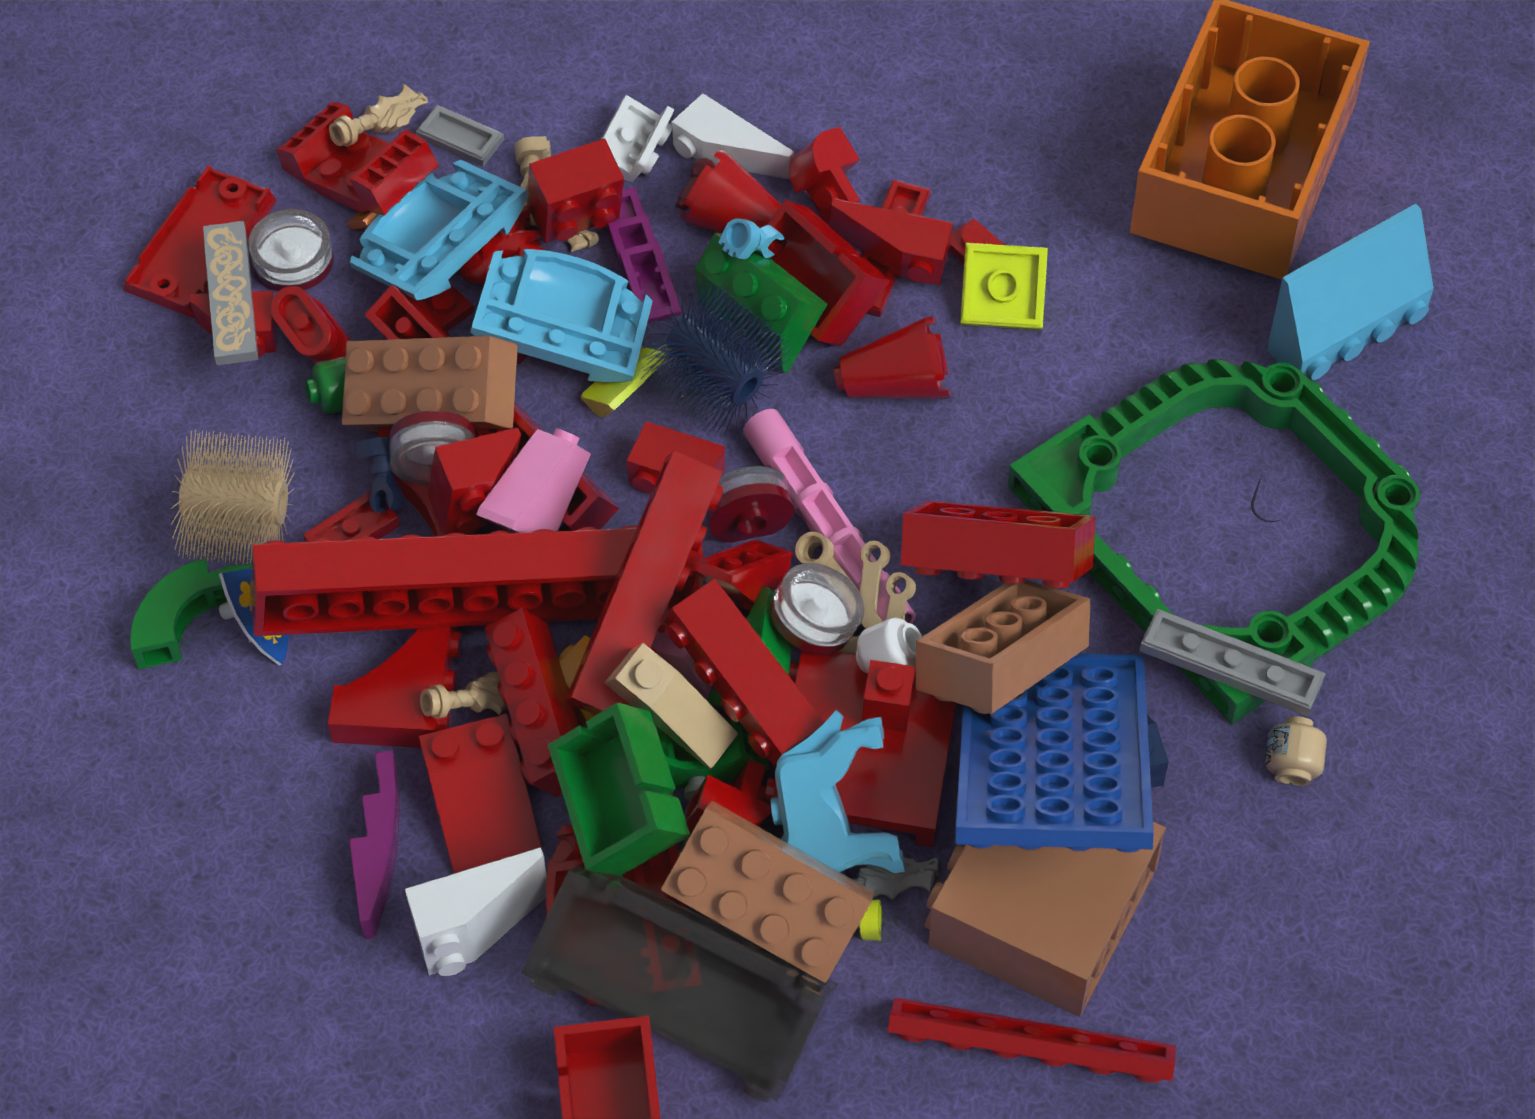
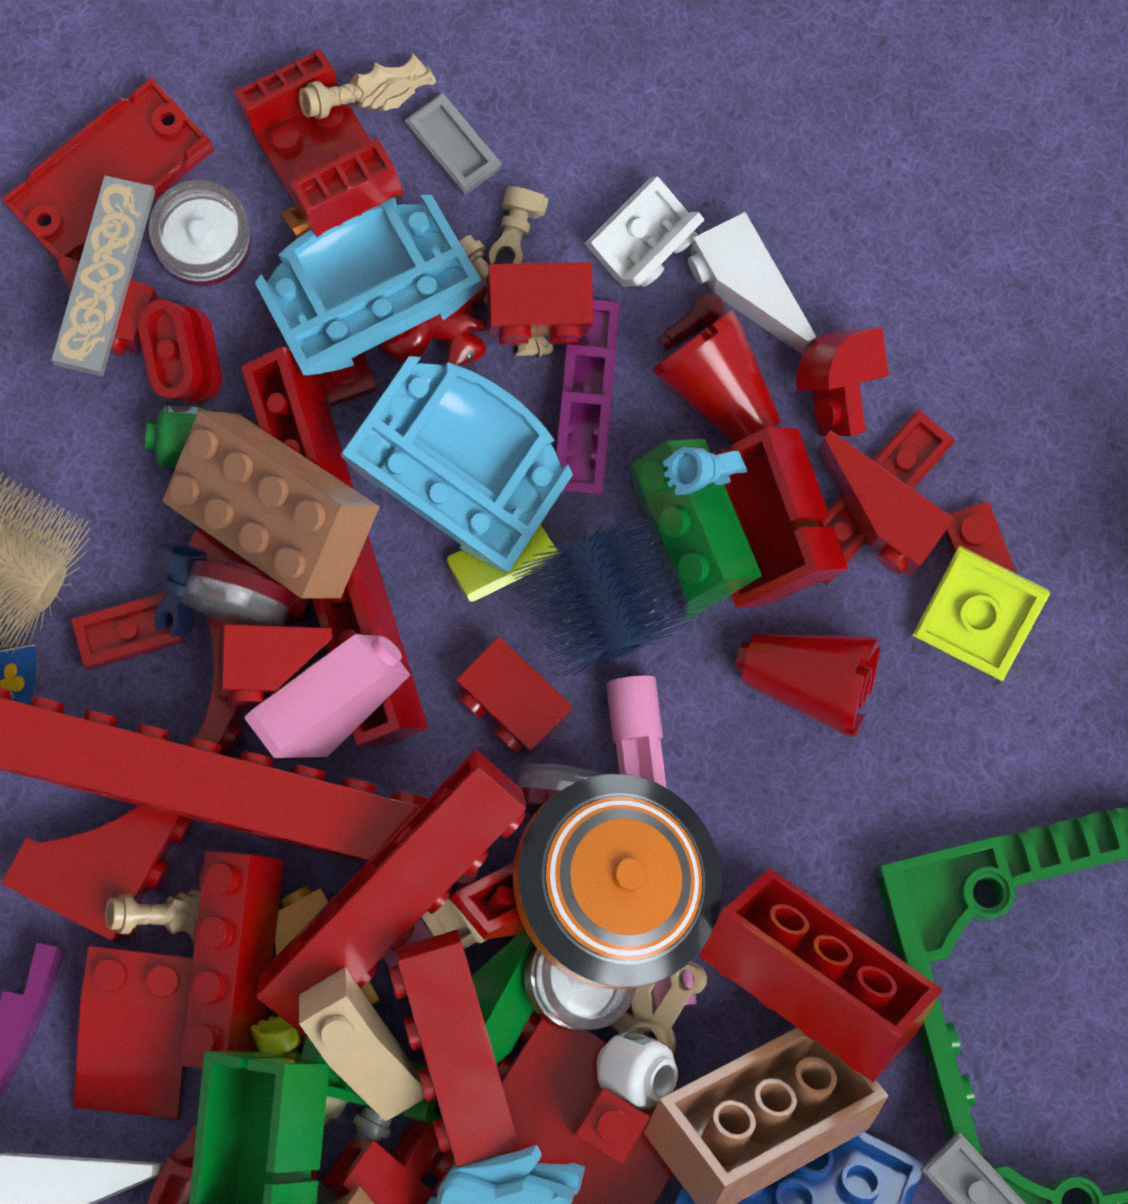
camera: 15 degrees right, 20 degrees up
(814, 526) = (617, 881): none -> dish

